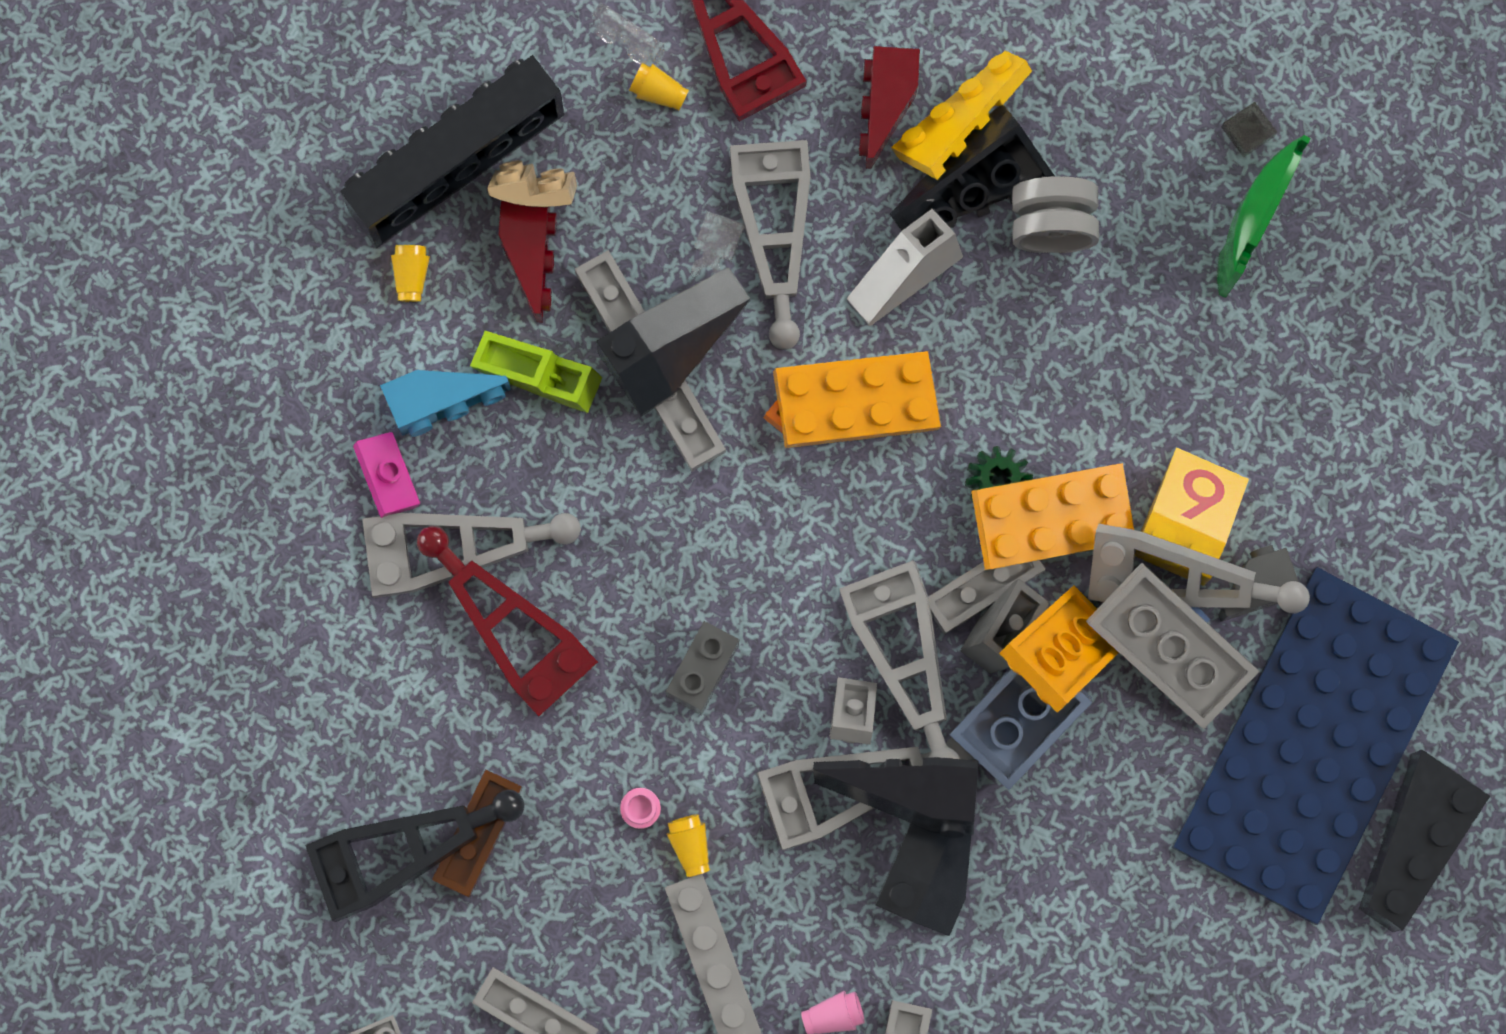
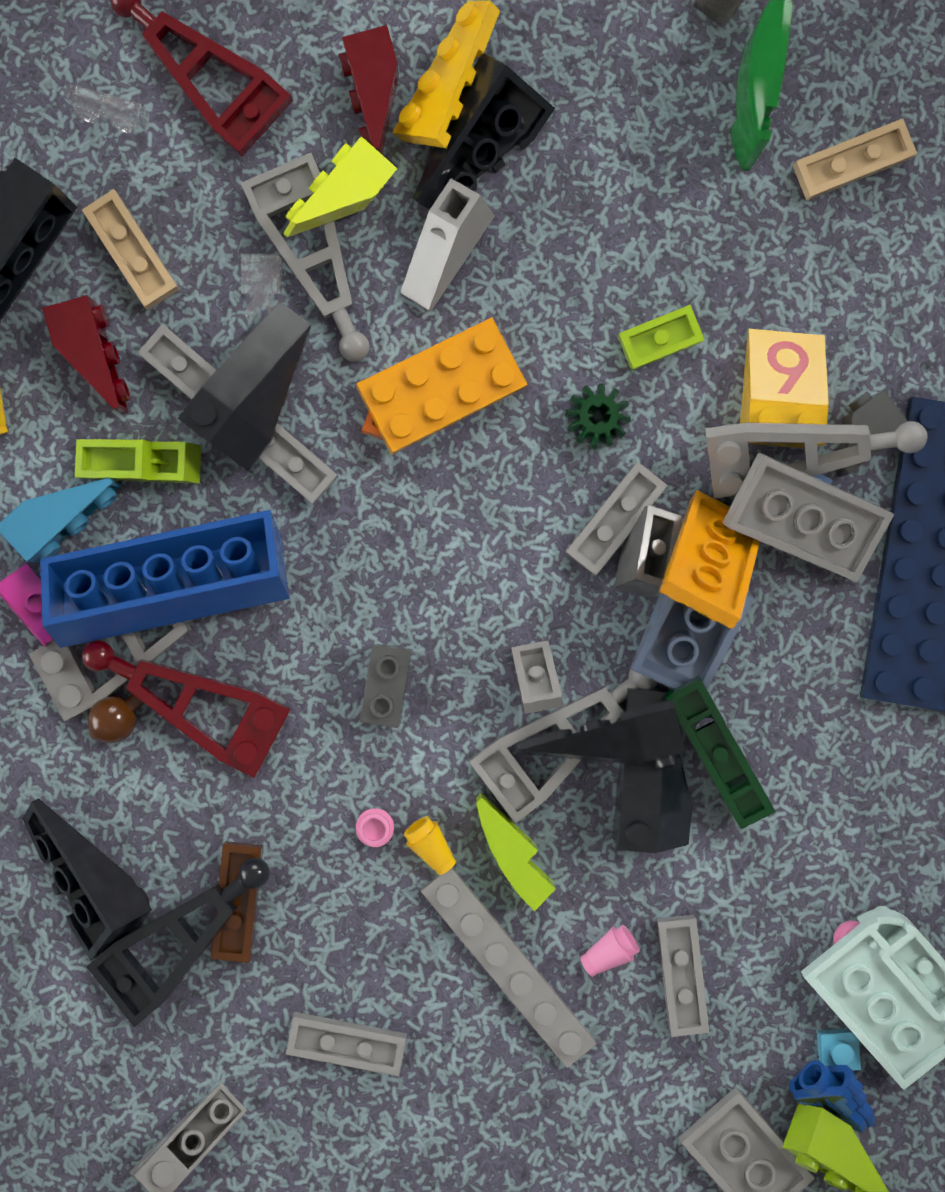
camera: 15 degrees left, 10 degrees up
(343, 771) = (100, 893): none -> black wedge
(422, 609) = (113, 719): none -> reddish brown piece
(519, 185) = (60, 290): tan slope -> none
(524, 489) = (163, 579): none -> blue brick
(602, 172) = (130, 249): none -> tan plate
(657, 87) = (153, 149): yellow cone -> none
(769, 878) = (513, 854): none -> lime slope
(826, 187) = (345, 191): none -> neon yellow slope
(885, 595) = (530, 559): light grey plate -> none
(1010, 848) = (720, 753): none -> dark green hinge
(1049, 515) = (656, 434): light orange plate -> none
(1055, 215) = (568, 143): light grey wheel -> none
(1086, 426) = (660, 337): none -> lime plate
(1330, 321) = (854, 159): none -> tan plate

